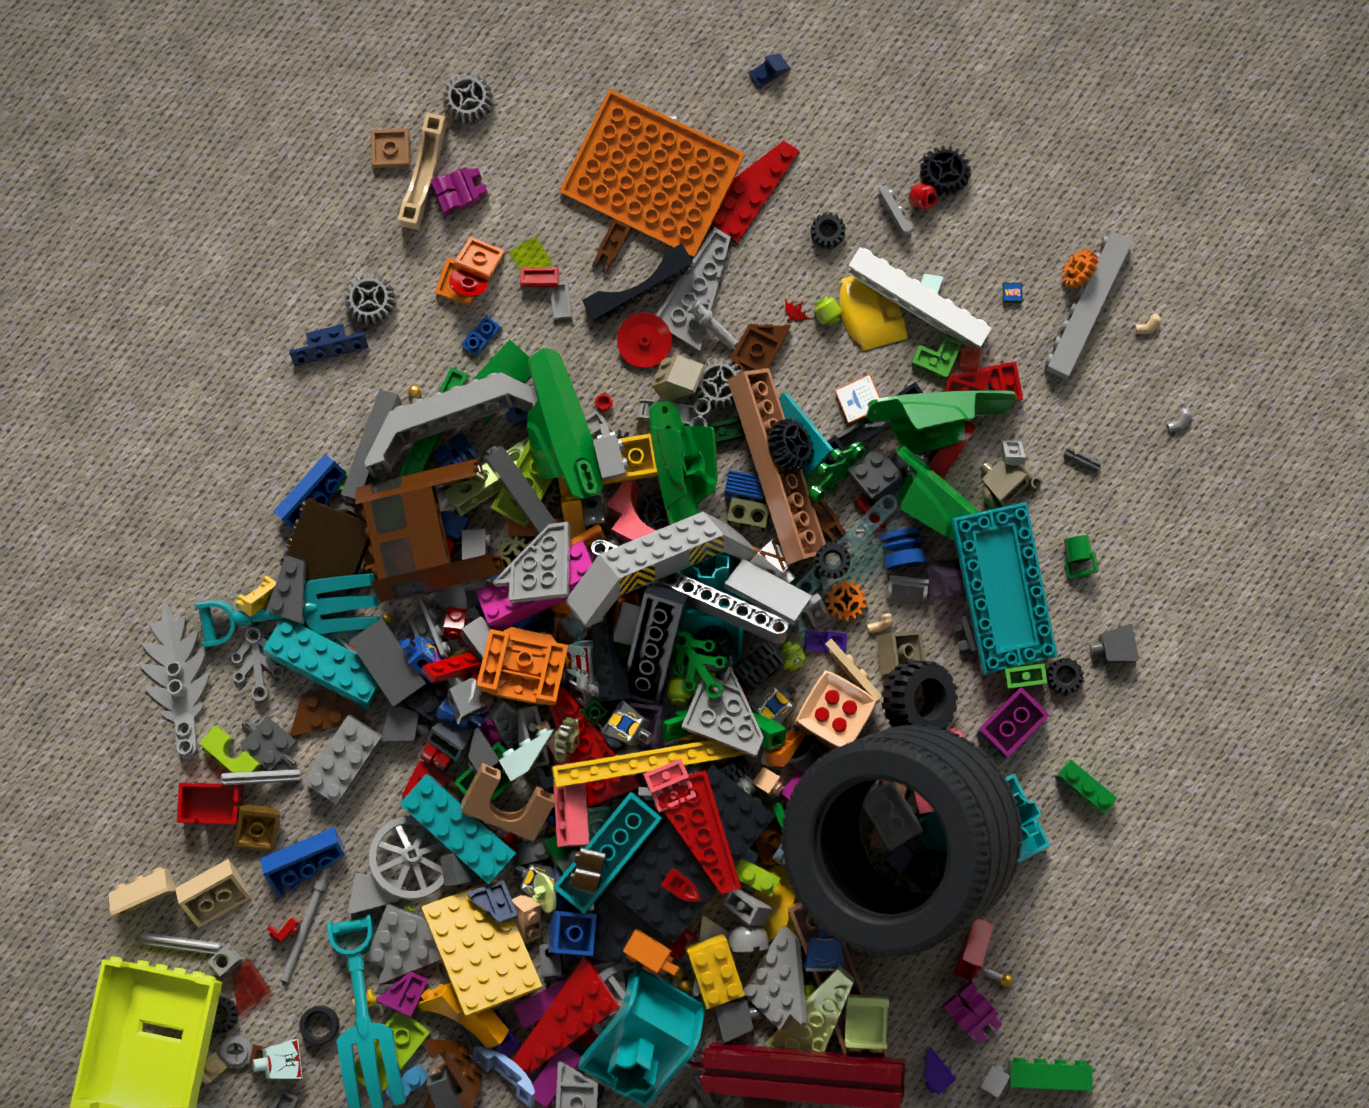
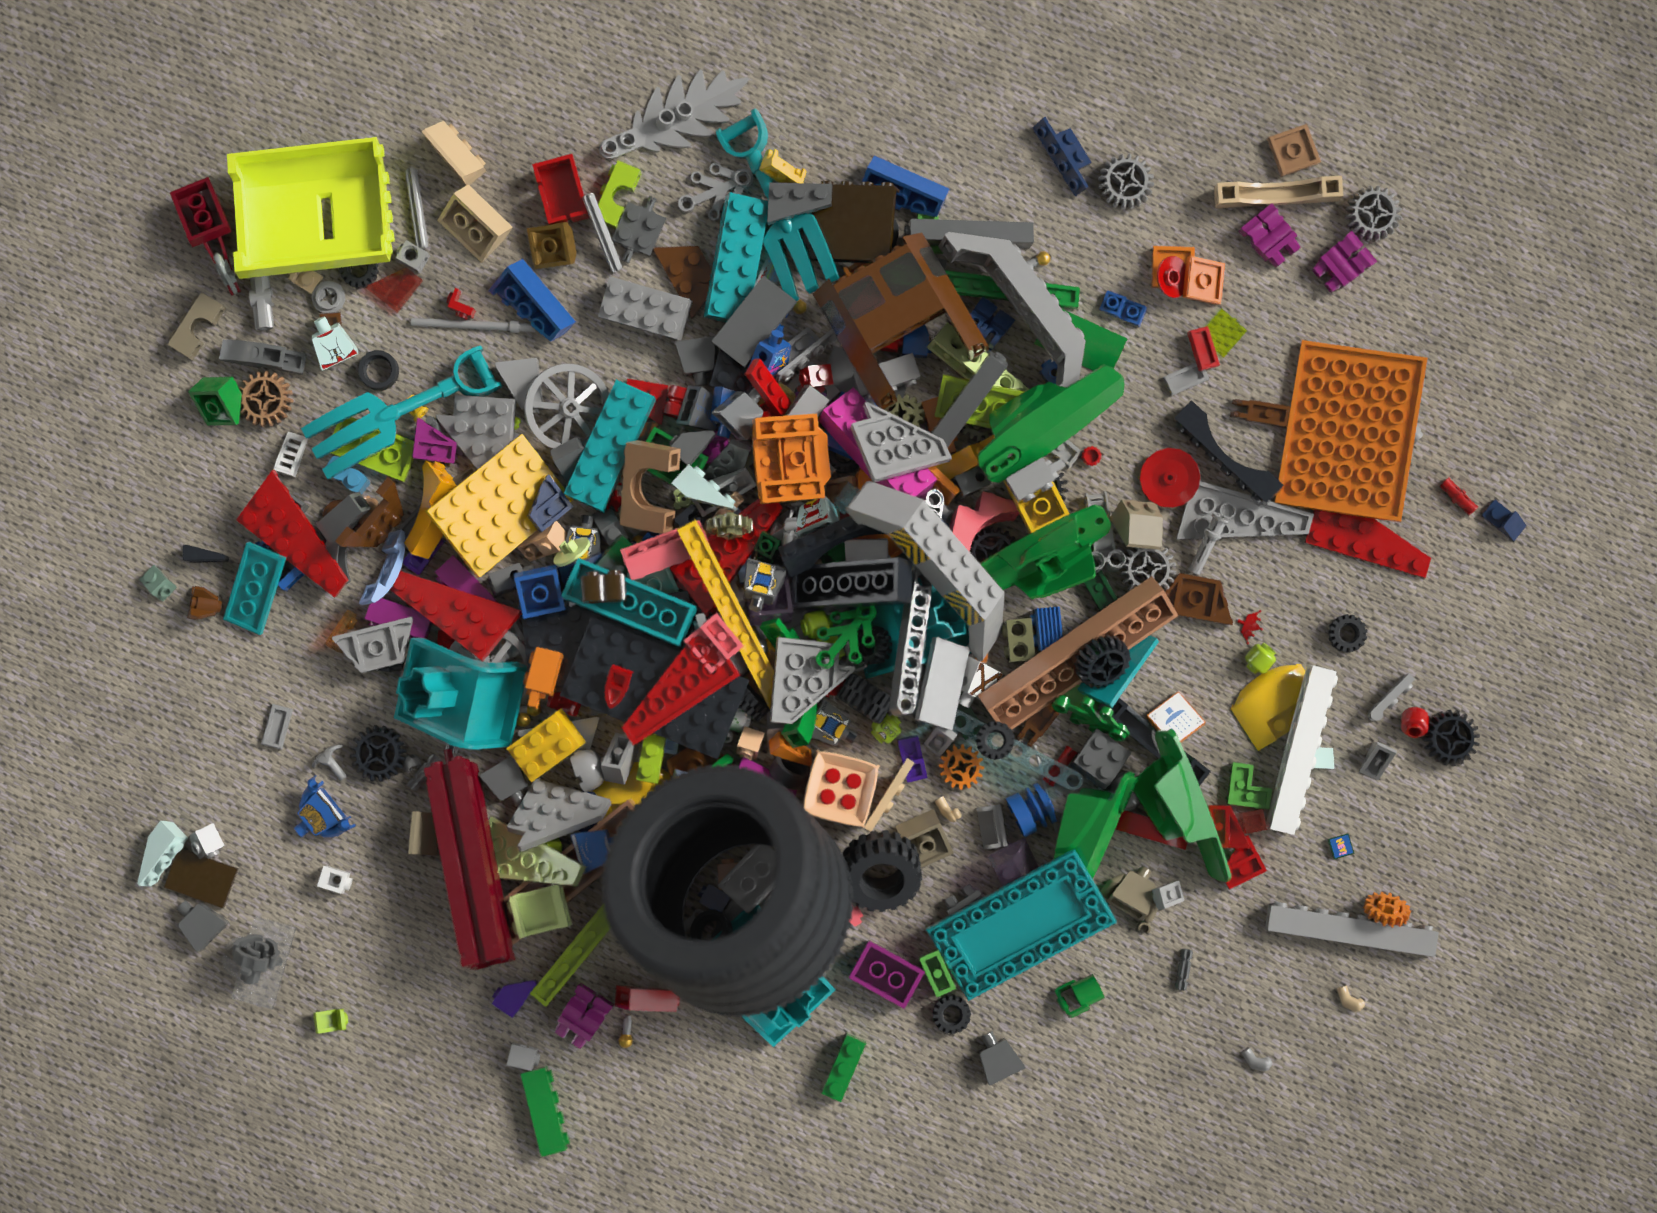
camera: 65 degrees right, 5 degrees up
(505, 141) = (1338, 266): none -> magenta hips
(529, 782) = (678, 500): none -> yellowish green plate
(737, 101) = (1458, 496): none -> red pin
(914, 1003) = (572, 958): none -> lime plate
(946, 238) = (1377, 760): none -> light grey slope

